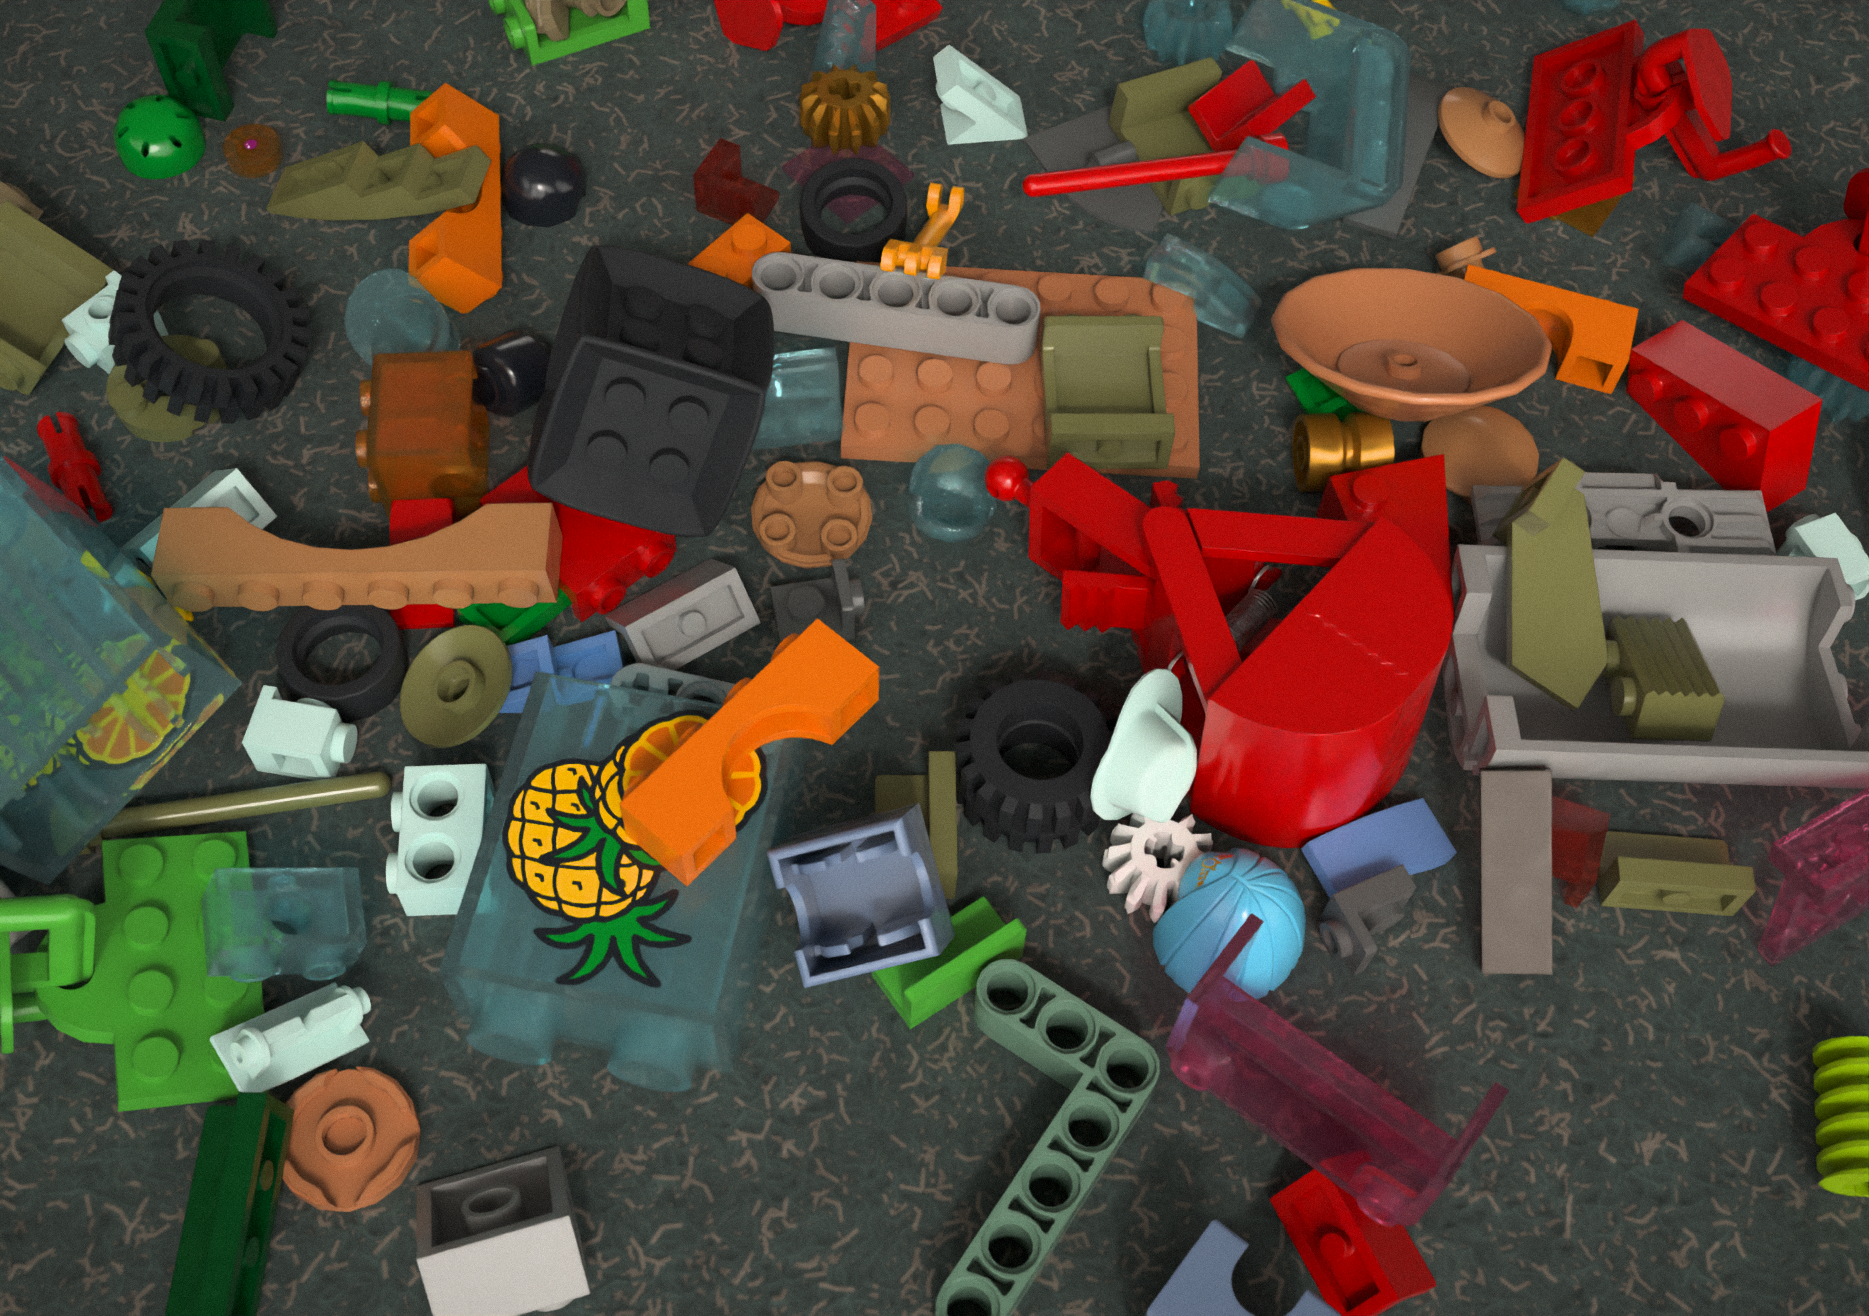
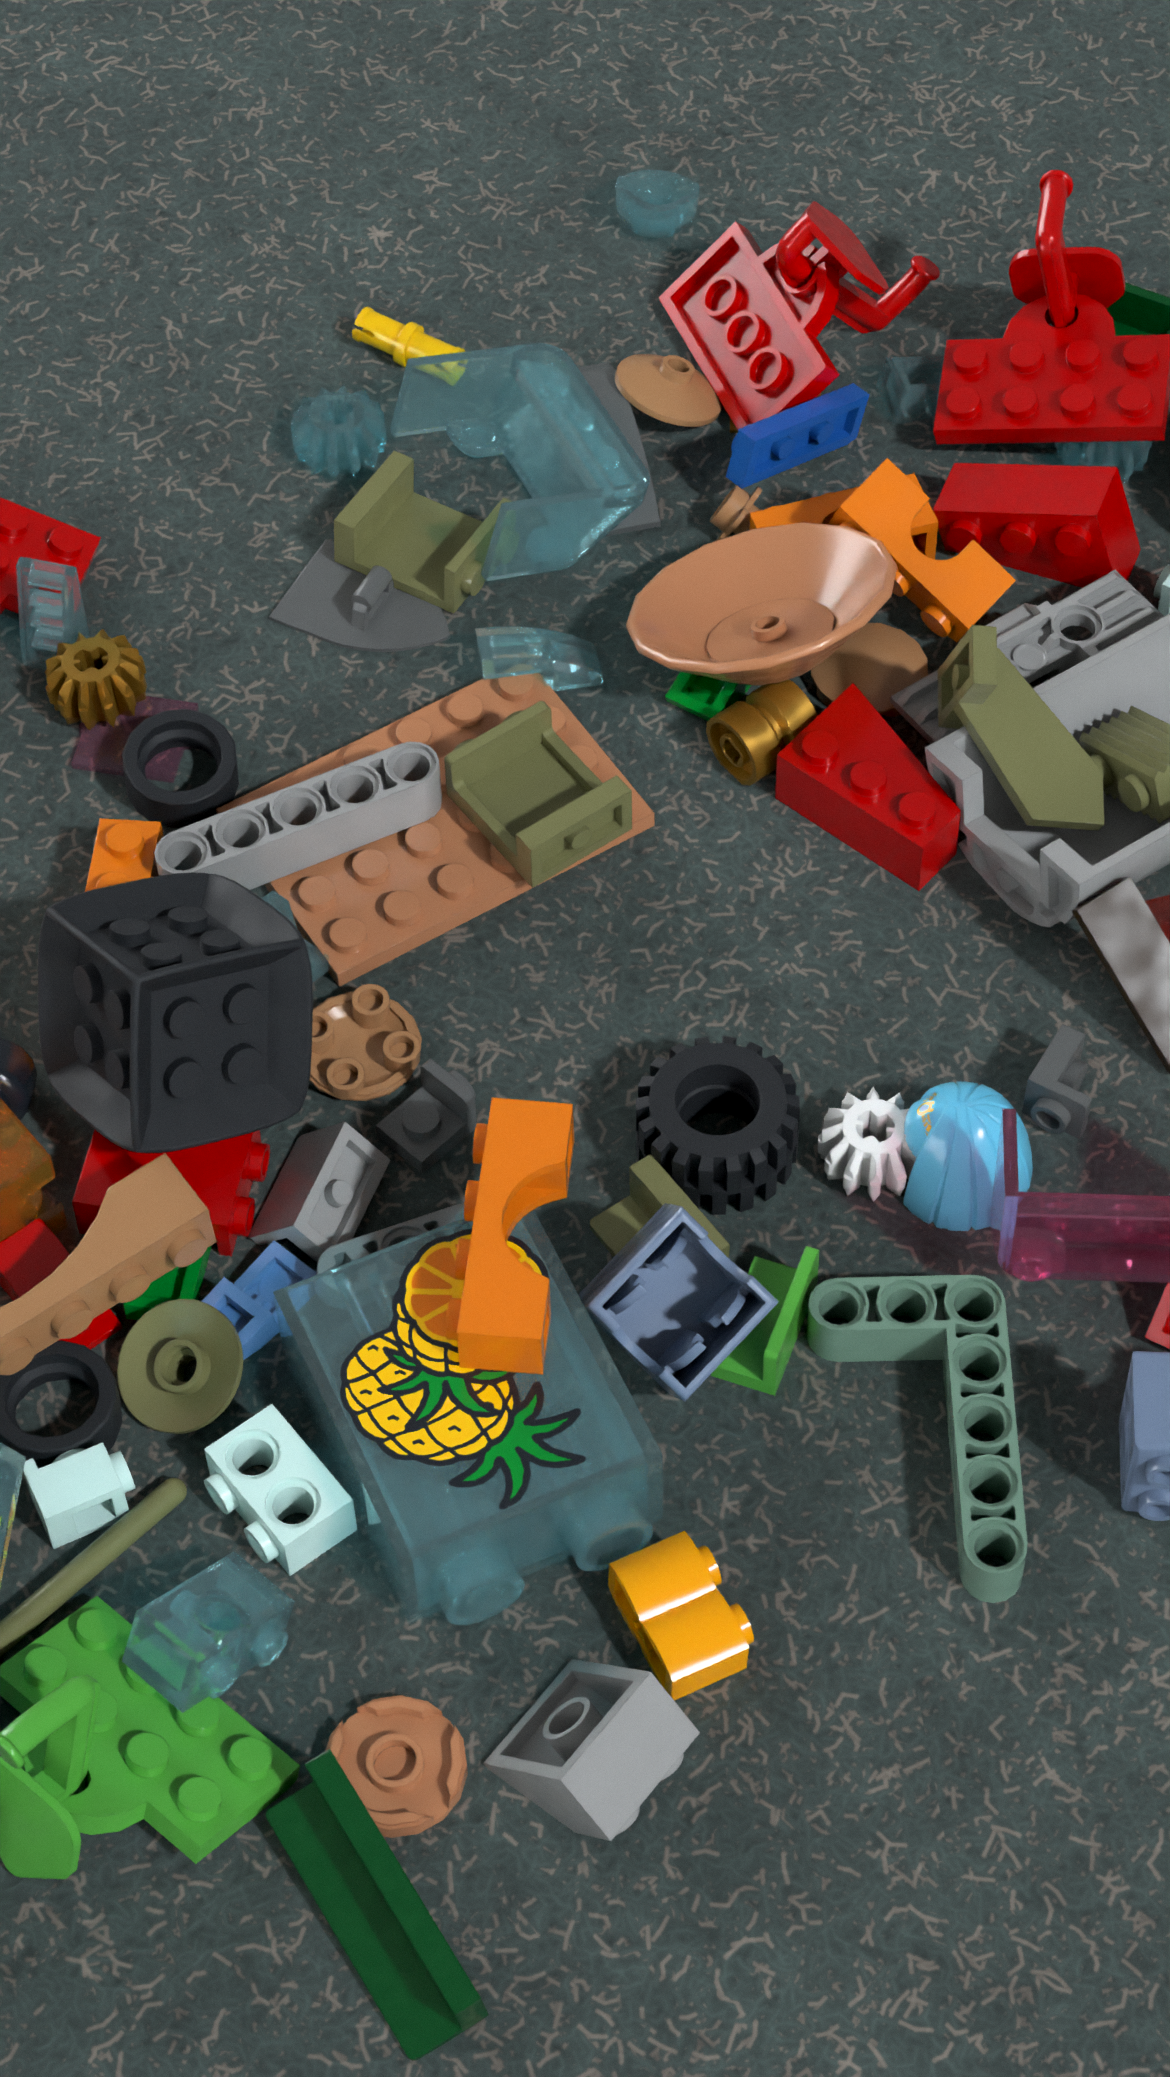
camera: 30 degrees left, 5 degrees down
(293, 1038) = (295, 1710): light aqua hinge -> none
(664, 1173) = (680, 1615): none -> light orange brick
(725, 193) = (50, 817): clear red panel -> none
(924, 250) = (286, 763): light orange hinge -> none
(948, 478) = (470, 940): clear light blue hair -> none
(975, 102) = (207, 609): light aqua slope -> none
(1135, 172) = (422, 584): red piece -> none
(1149, 754) = (821, 1058): light aqua piece -> none
(1245, 107) = (455, 487): red panel -> none
(1324, 698) = (921, 911): red piece -> none
(1378, 843) = (1028, 1027): medium blue slope -> none
(1559, 223) = (796, 435): none -> blue plate
(1595, 427) = (947, 591): none -> orange arch

